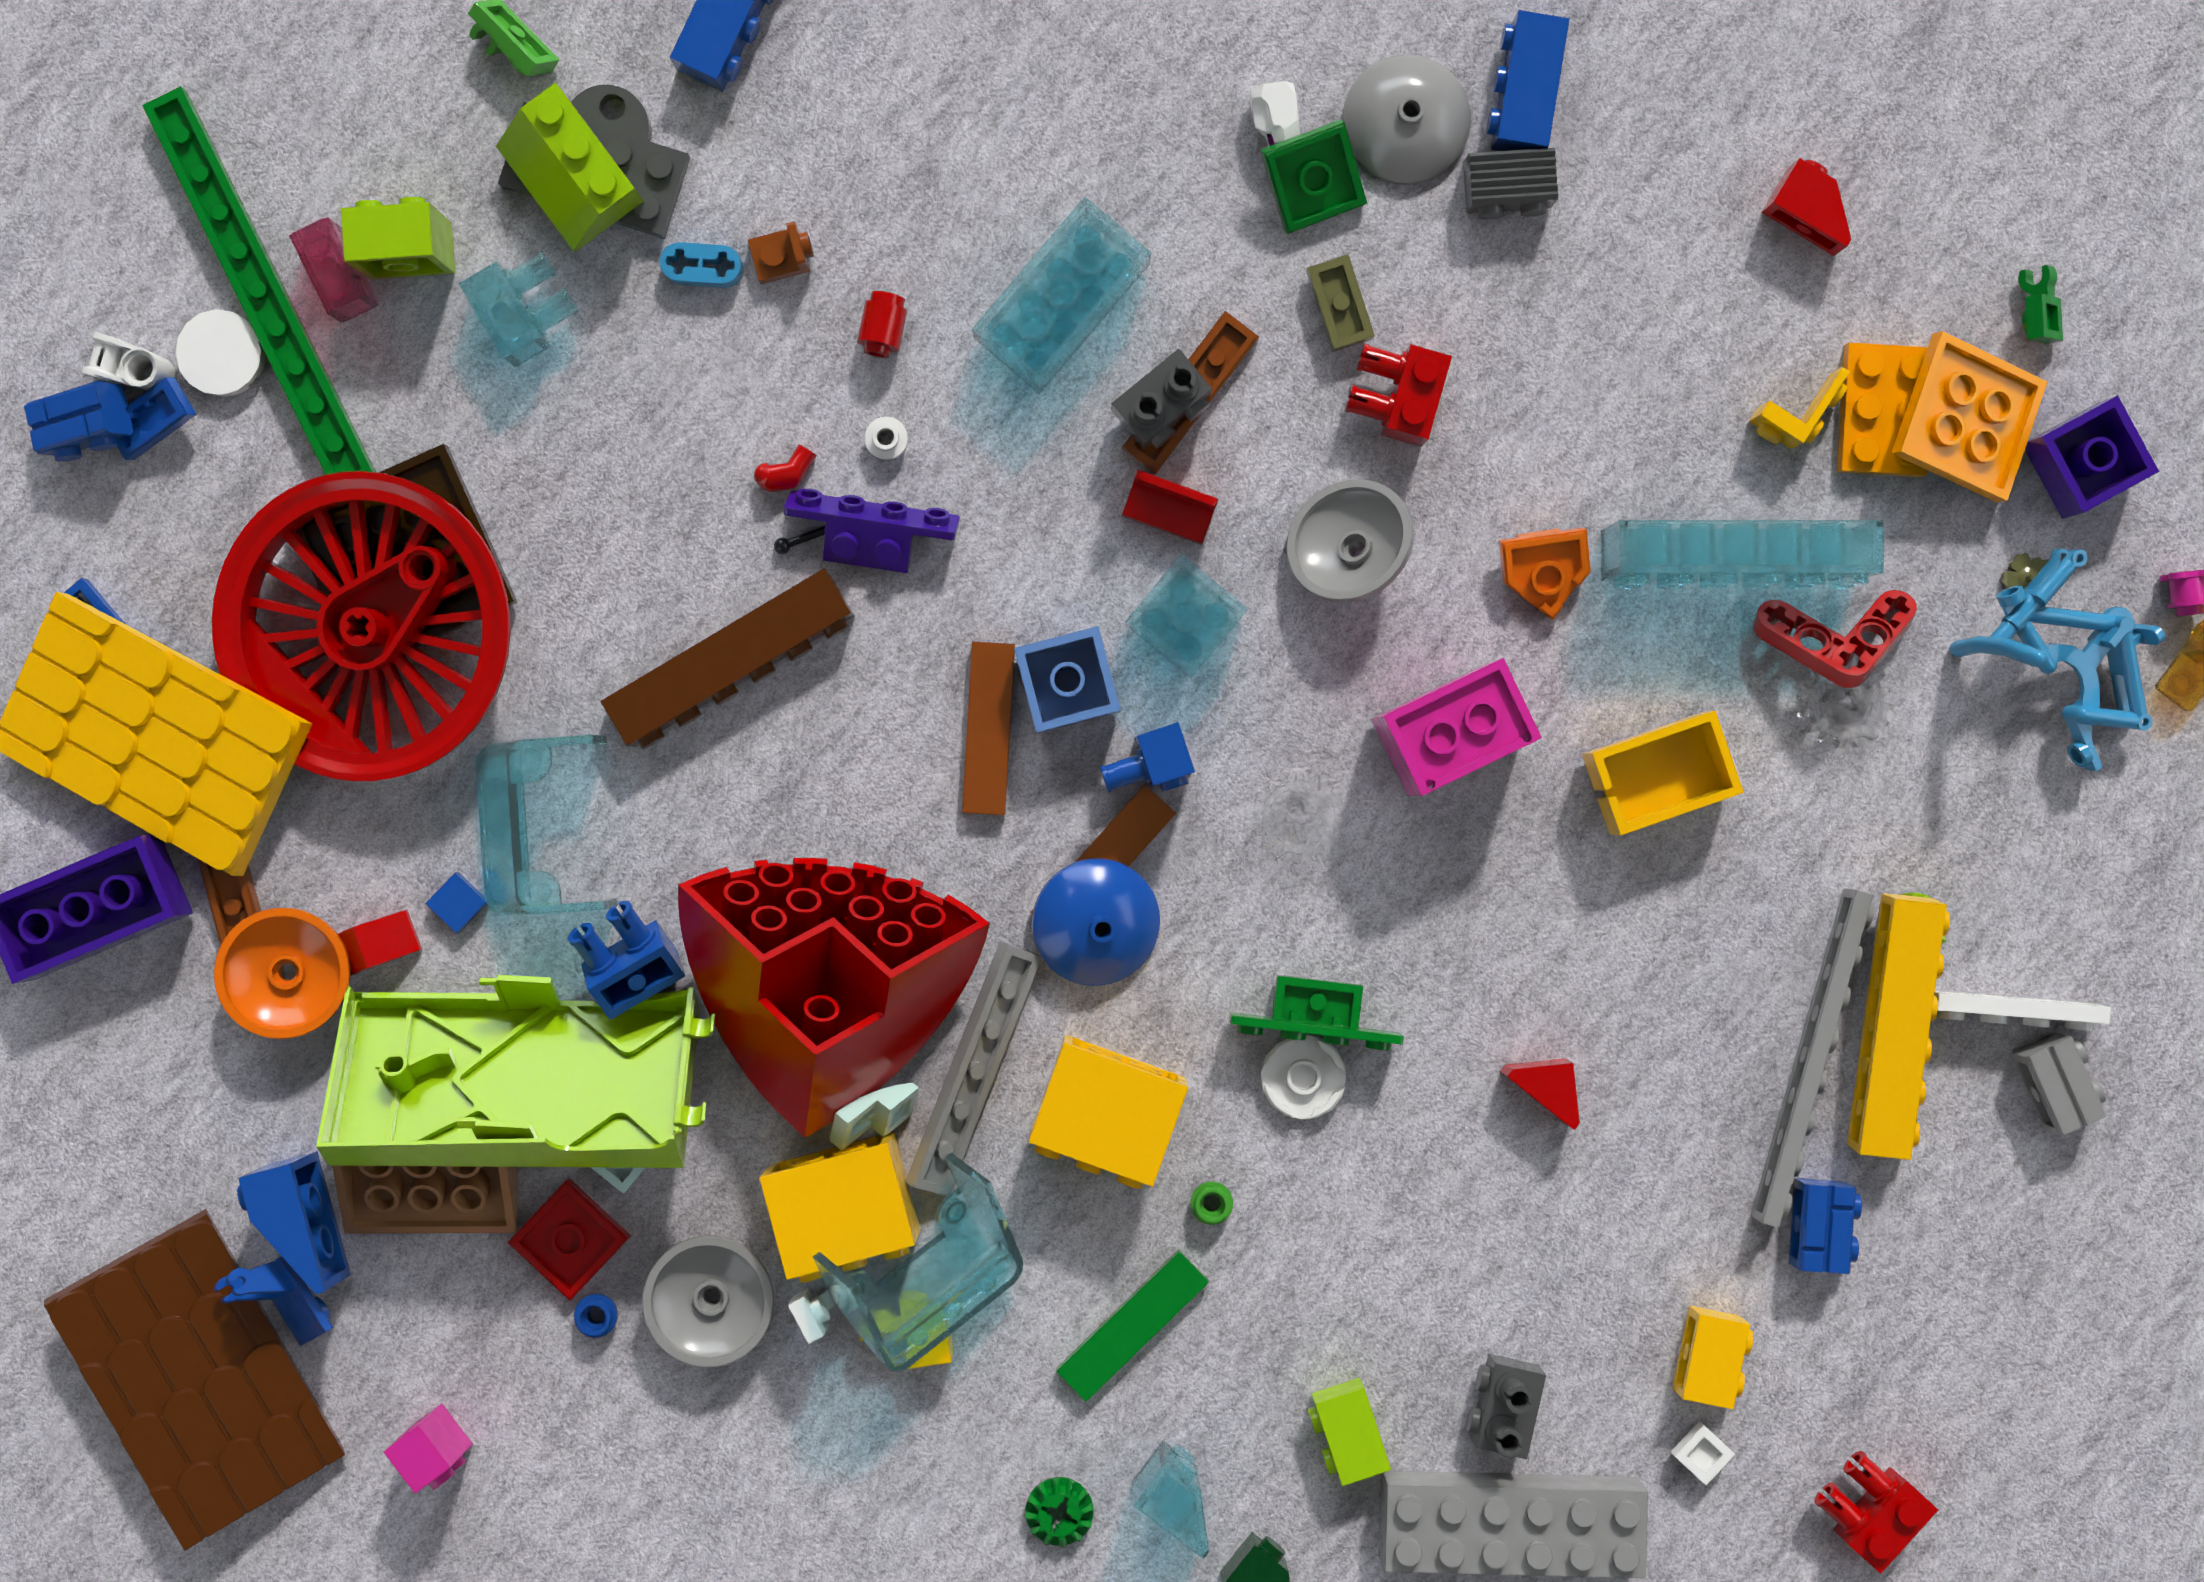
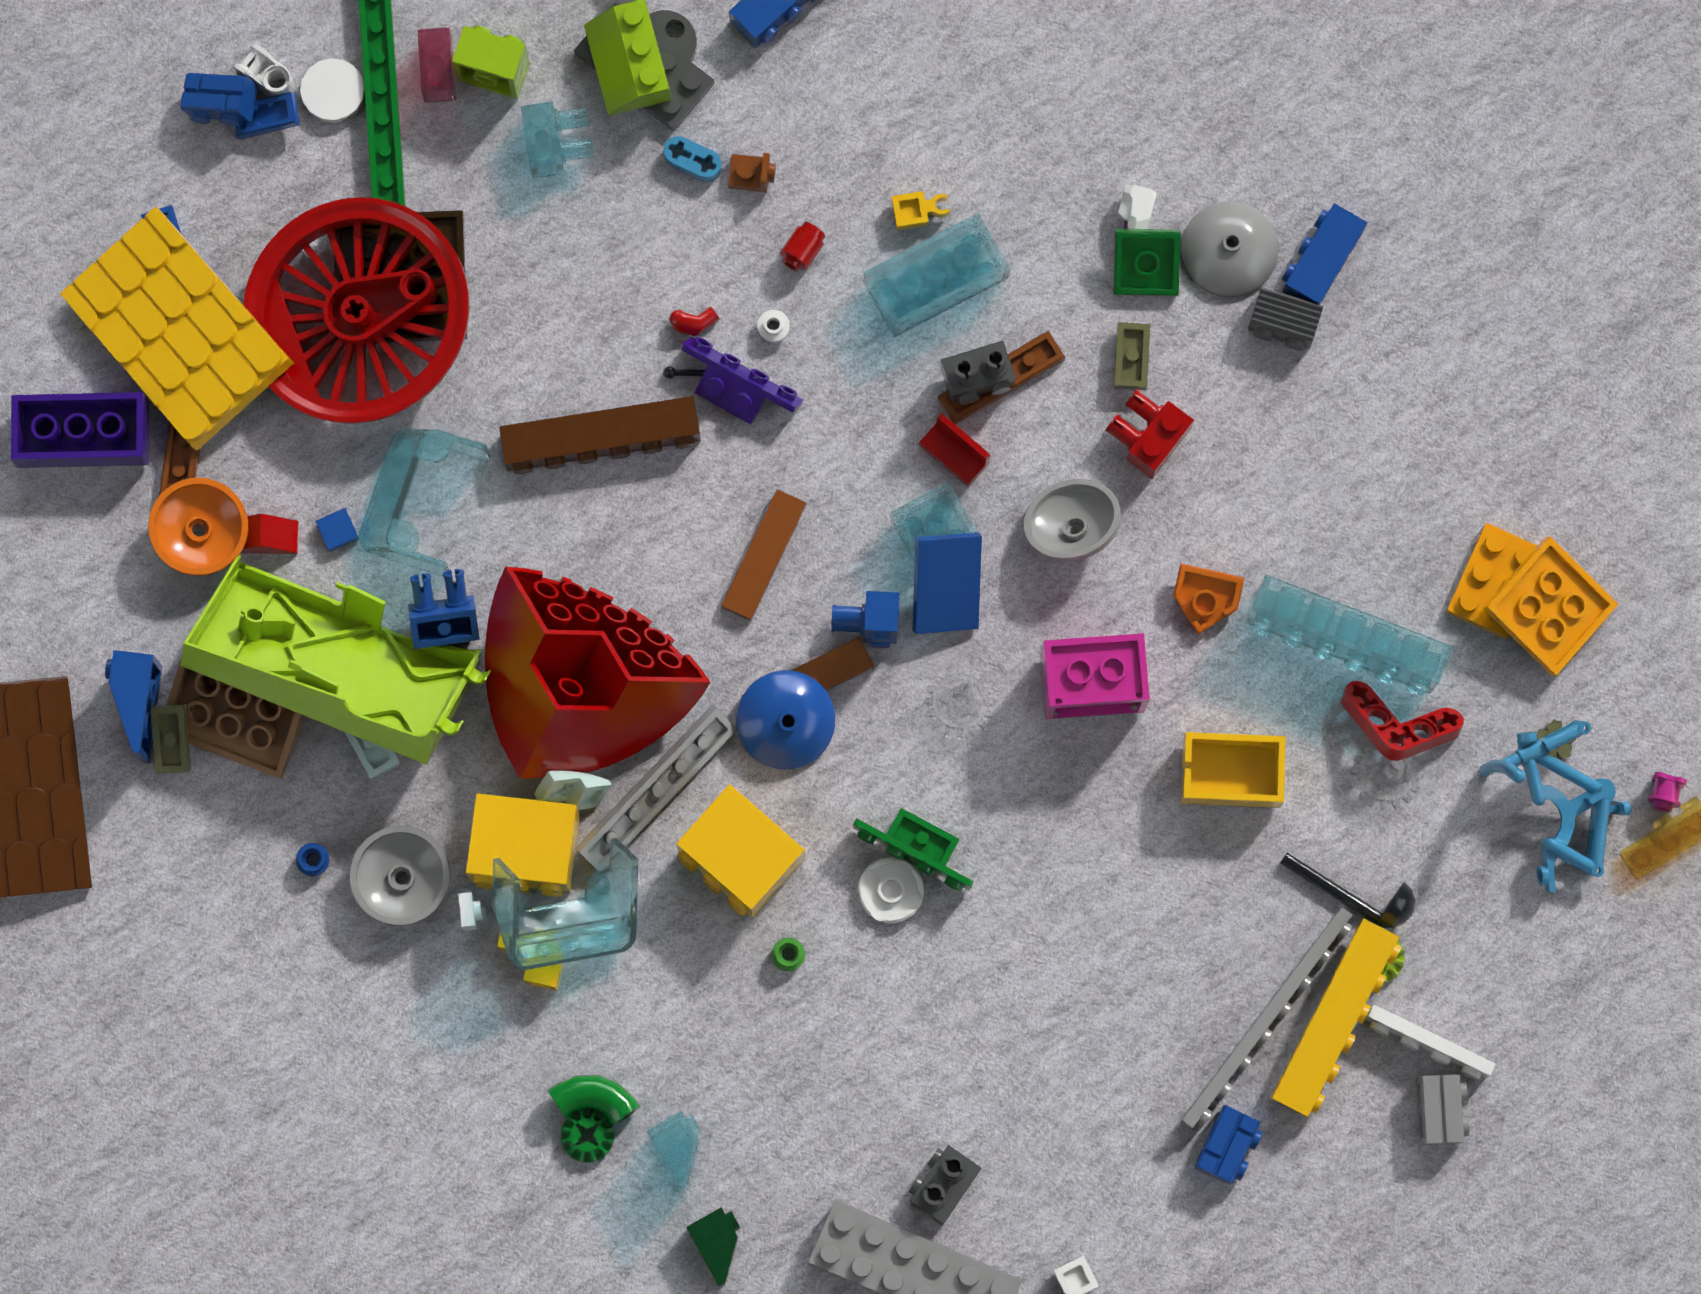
camera: 15 degrees right, 10 degrees down
(278, 1282) = (104, 752): blue plate -> none
(361, 1242) = (170, 738): none -> olive plate
(429, 1450) = (158, 901): dark pink brick -> none
(569, 1239) = (316, 798): red tile -> none
(1000, 223) = (913, 210): none -> yellow plate
(1049, 1463) = (594, 1093): none -> green cylinder
(1067, 679) = (833, 540): medium blue brick -> none
(1132, 1325) = (695, 1020): green tile -> none
(1228, 680) = (947, 583): none -> blue tile
(1350, 1431) = (822, 1157): lime brick -> none
(1550, 1084) = (1065, 964): red slope -> none
(1712, 1357) = (1109, 1209): yellow brick -> none
(1780, 426) = (1413, 561): yellow bracket -> none
(1810, 206) = (1492, 416): red slope -> none
(1918, 863) = (1396, 913): none -> black piece
(2043, 310) = (1633, 553): green plate -> none
(2090, 457) = (1627, 667): dark purple brick -> none

